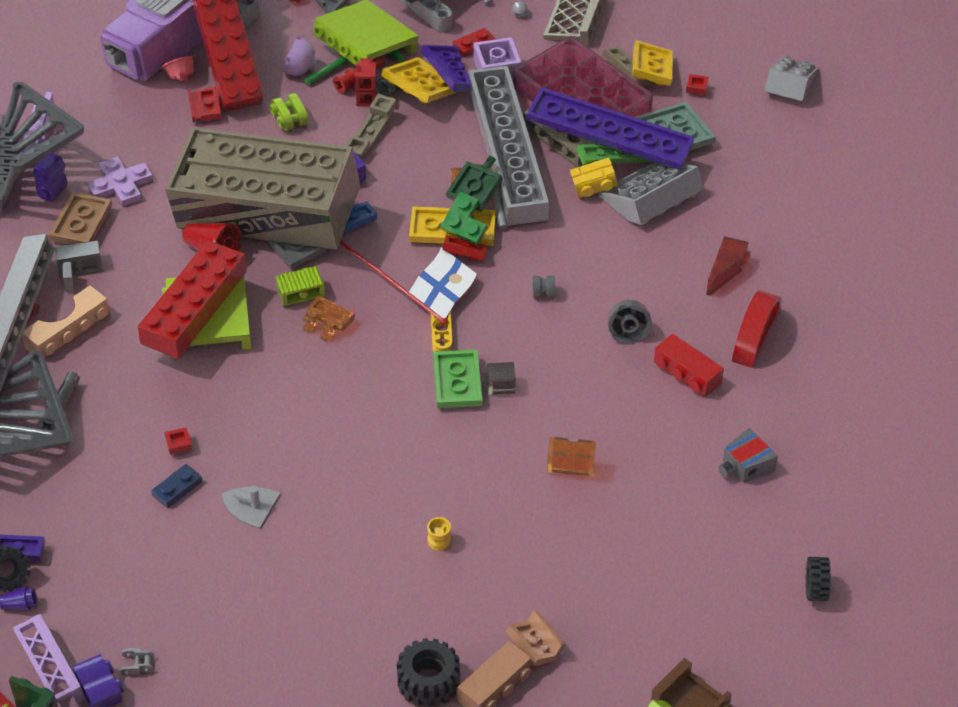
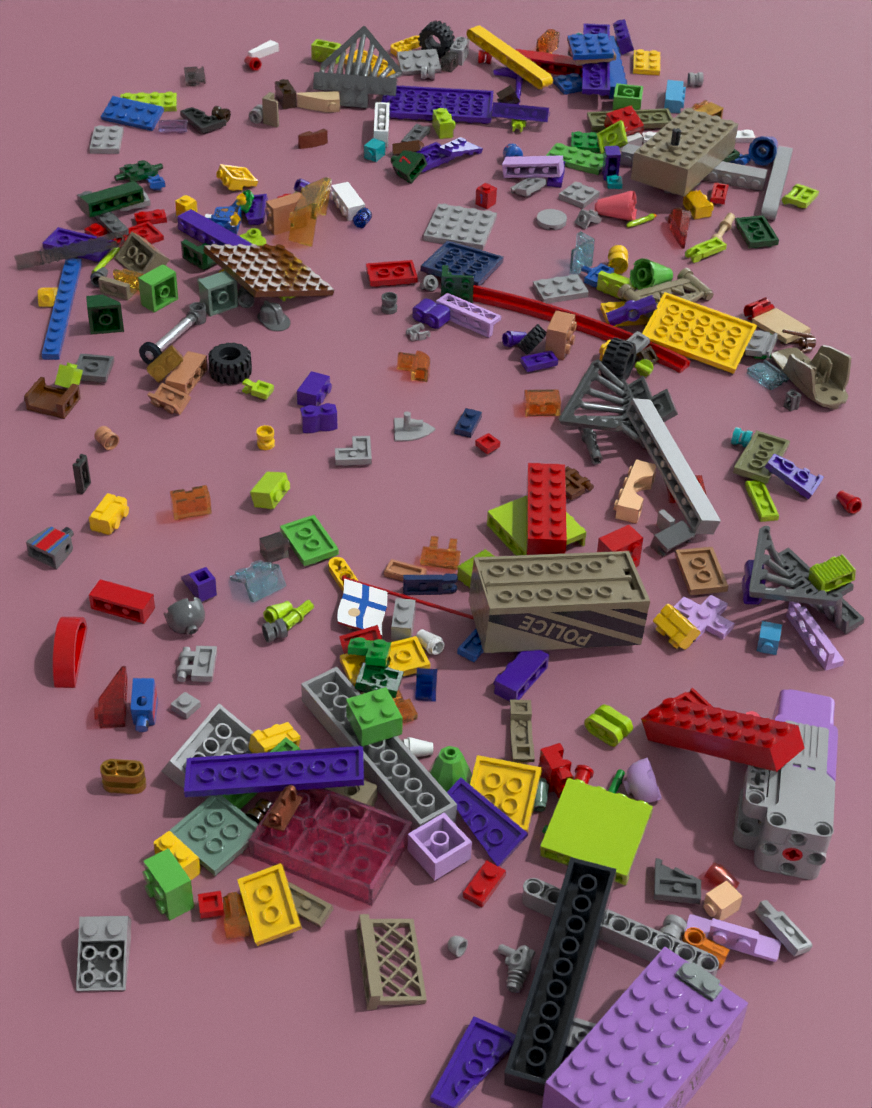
camera: 155 degrees right, 5 degrees down
(70, 476) = (542, 402): none -> clear orange brick
(86, 141) = (769, 637): none -> dark azure brick
(132, 358) = (576, 483): none -> reddish brown plate
(150, 246) = (622, 540): none -> red brick
(157, 165) = (676, 626): none -> yellow brick
(179, 590) = (416, 363): none -> clear orange brick
(339, 592) = (314, 389): none -> dark purple brick
(340, 474) = (358, 455): none -> light grey plate
(357, 538) = (319, 418): none -> dark purple brick
(361, 286) = (429, 584): none -> dark blue hinge
(375, 316) = (396, 570): none -> nougat tile
(397, 231) = (431, 642): none -> white cone
(408, 621) = (259, 389): none -> lime plate
(412, 253) = (403, 619): none -> light grey brick
(423, 195) = (426, 684): none -> clear blue panel
(454, 111) = (449, 767): none -> bright green cone
(469, 145) = (418, 747): none -> white cone
(470, 447) = (270, 490): none -> lime brick
(502, 138) = (374, 716): none -> bright green brick
(512, 300) = (297, 614): none -> lime axle
(521, 684) = (165, 363): none -> pearl gold brick
(531, 306) = (277, 611): none -> lime cone
(535, 351) = (260, 579): none -> clear light blue bracket
(599, 356) = (201, 583): none -> dark purple slope
(618, 97) = (283, 809): none -> copper hinge
(627, 279) = (203, 663): none -> light grey plate
(638, 598) = (106, 438): none -> nougat wheel
(659, 248) = (185, 705): none -> light grey plate
(669, 480) = (108, 514): none -> yellow brick
(681, 69) = (235, 920): none -> clear orange piece
(688, 531) = (81, 474): none -> pearl dark grey tile
(701, 238) = (143, 709): none -> blue torso
(714, 117) = (185, 857): none -> yellow brick
(728, 92) = (168, 884): none -> bright green brick
(739, 192) = (123, 776): none -> pearl gold brick

